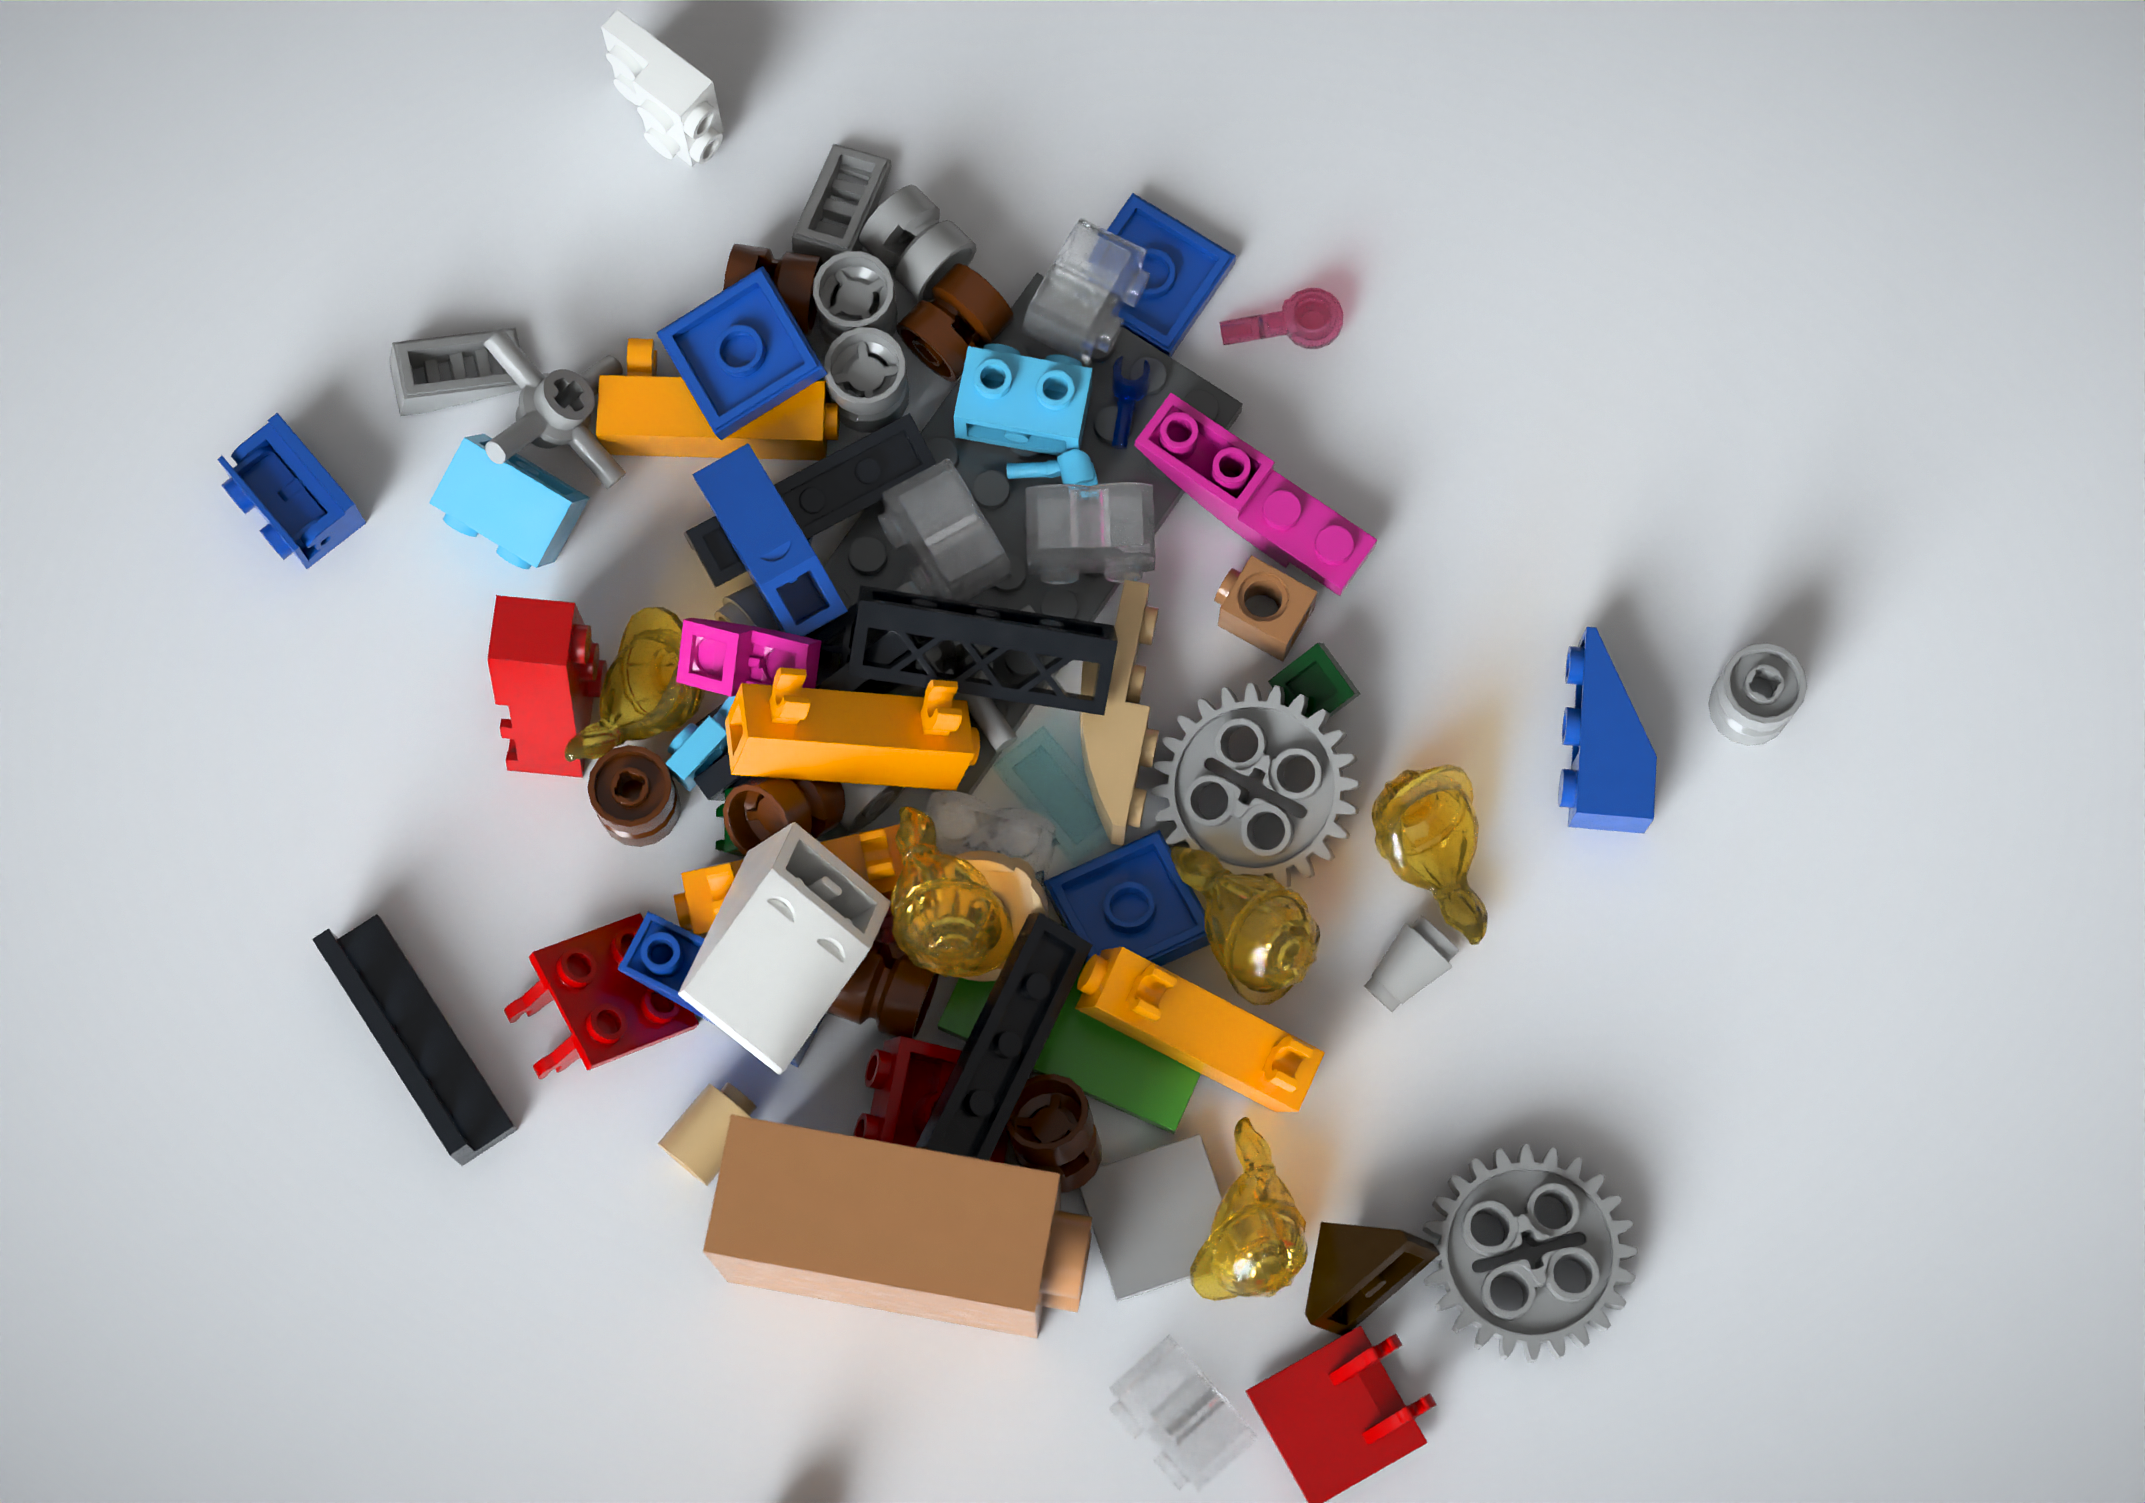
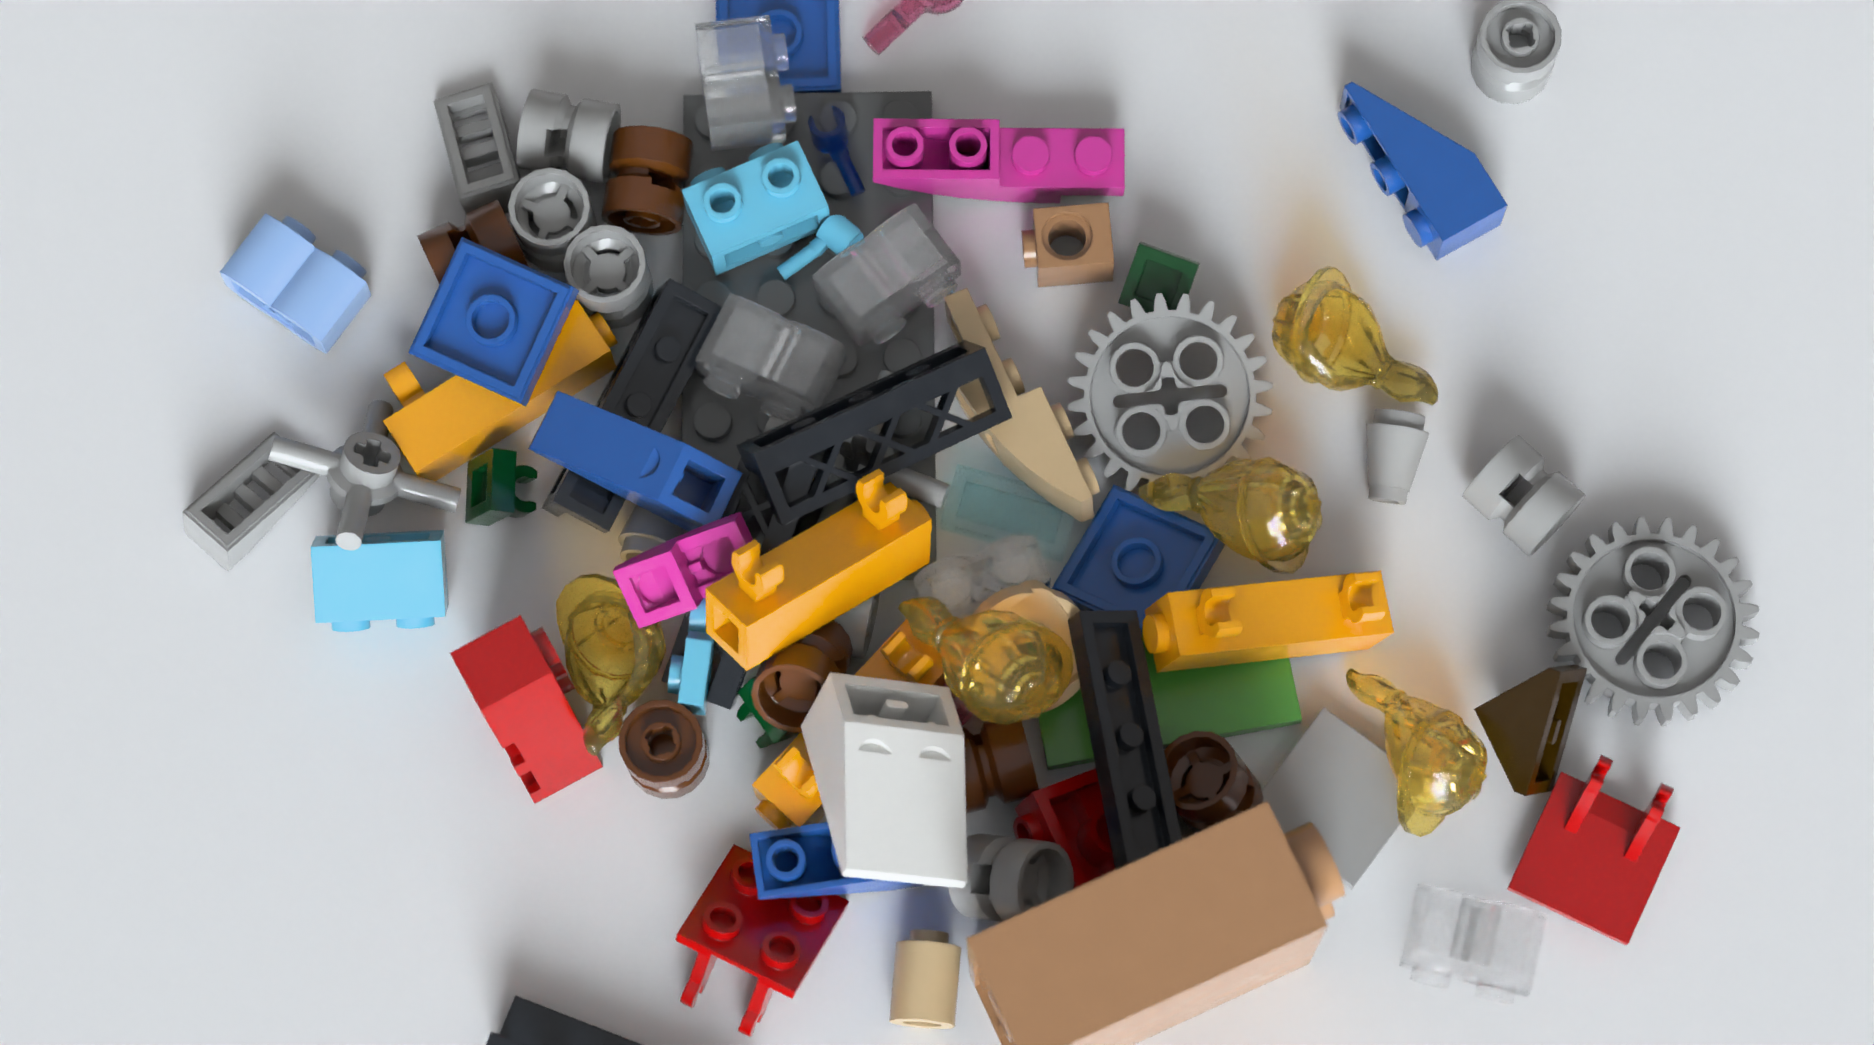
camera: 30 degrees left, 0 degrees up
(292, 492) = (184, 696): blue hinge -> none
(617, 218) = (296, 281): none -> light blue brick
(652, 489) = (492, 487): none -> dark green tile
(671, 94) = (275, 144): white plate -> none
(831, 1091) = (1010, 876): none -> light grey wheel
(1498, 1094) = (1539, 511): none -> light grey wheel

